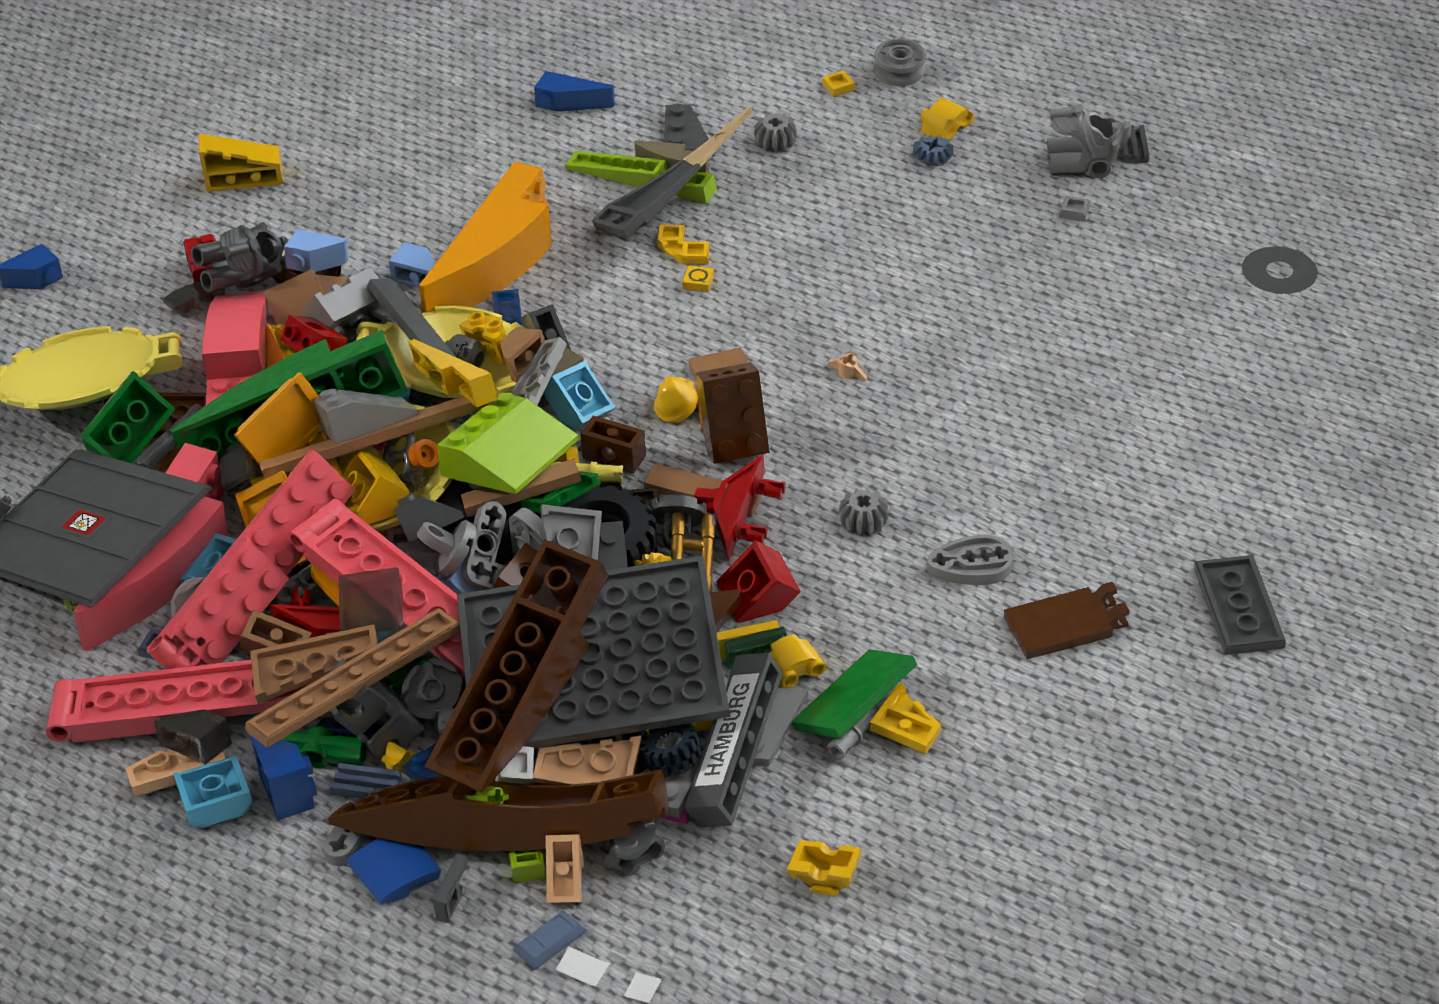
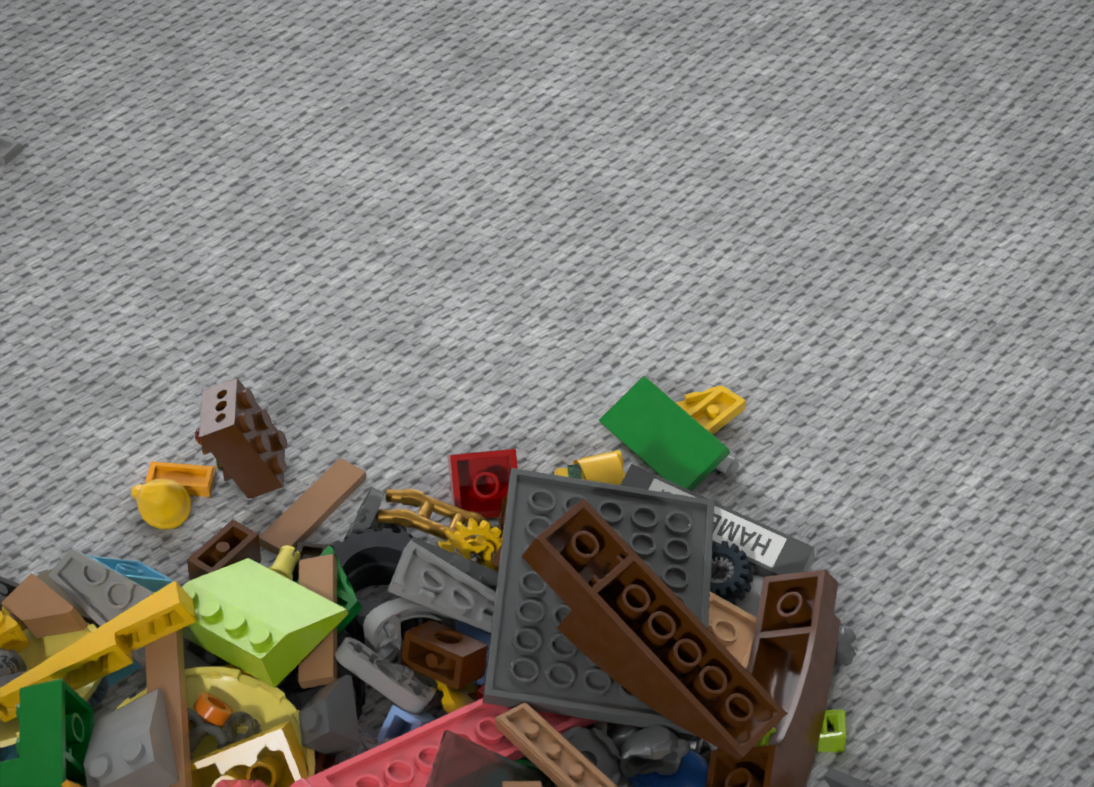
camera: 80 degrees left, 0 degrees up
(449, 545) = (385, 701): light grey tile -> none
(549, 939) = (927, 730): sand blue tile -> none
(563, 868) = (856, 692): light nougat slope -> none
(591, 970) = (967, 706): white sticker -> none
(717, 360) = (112, 461): medium nougat tile -> none
(733, 500) = (359, 472): red connector -> none
(823, 868) = (885, 493): yellow cylinder -> none
(848, 367) = (168, 360): light nougat piece -> none
(863, 511) = (405, 385): light grey gear -> none
(959, 570) = (513, 328): light grey piece -> none
(1066, 620) = (601, 282): reddish brown tile -> none
(1239, 605) = (613, 173): dark grey tile -> none
(1303, 267) = (193, 48): dark grey sticker -> none

